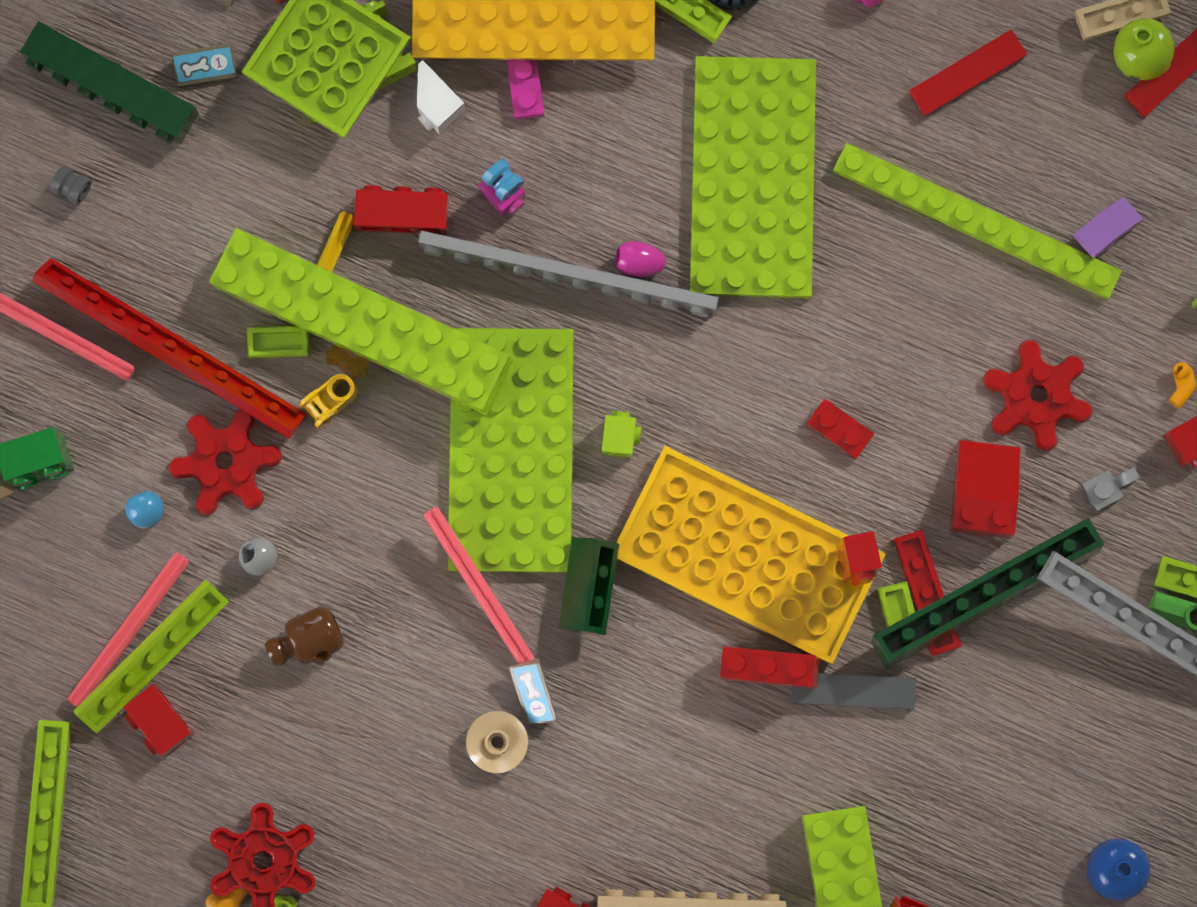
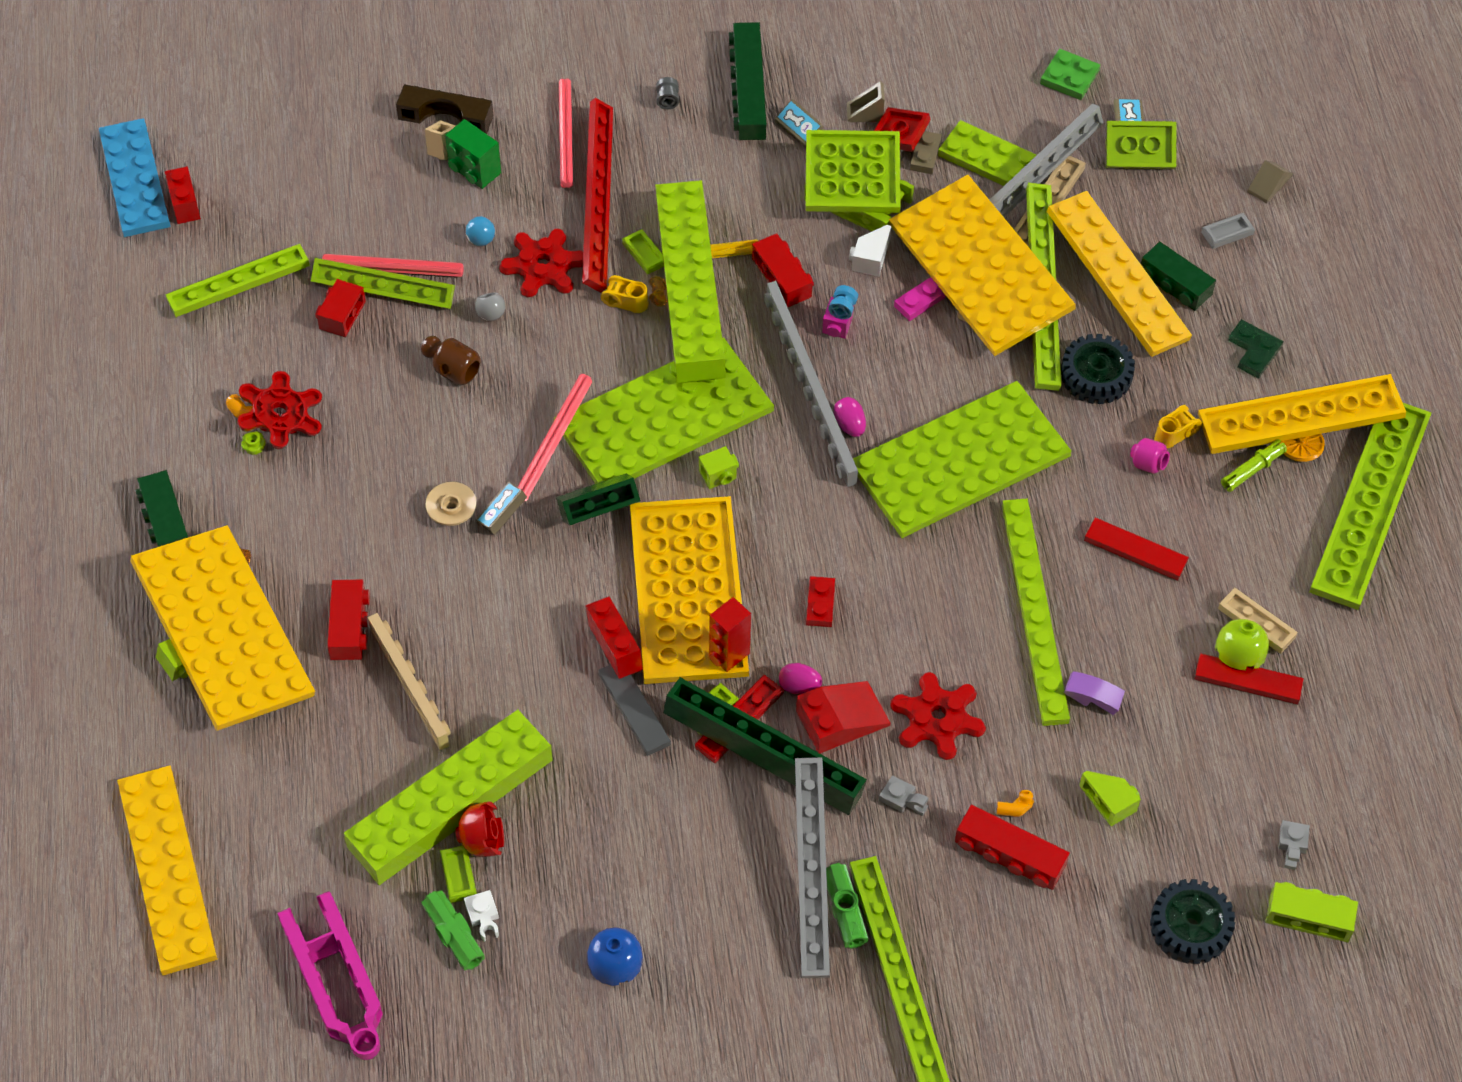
camera: 55 degrees right, 25 degrees down
(924, 508) = (799, 678): none -> dark pink animal

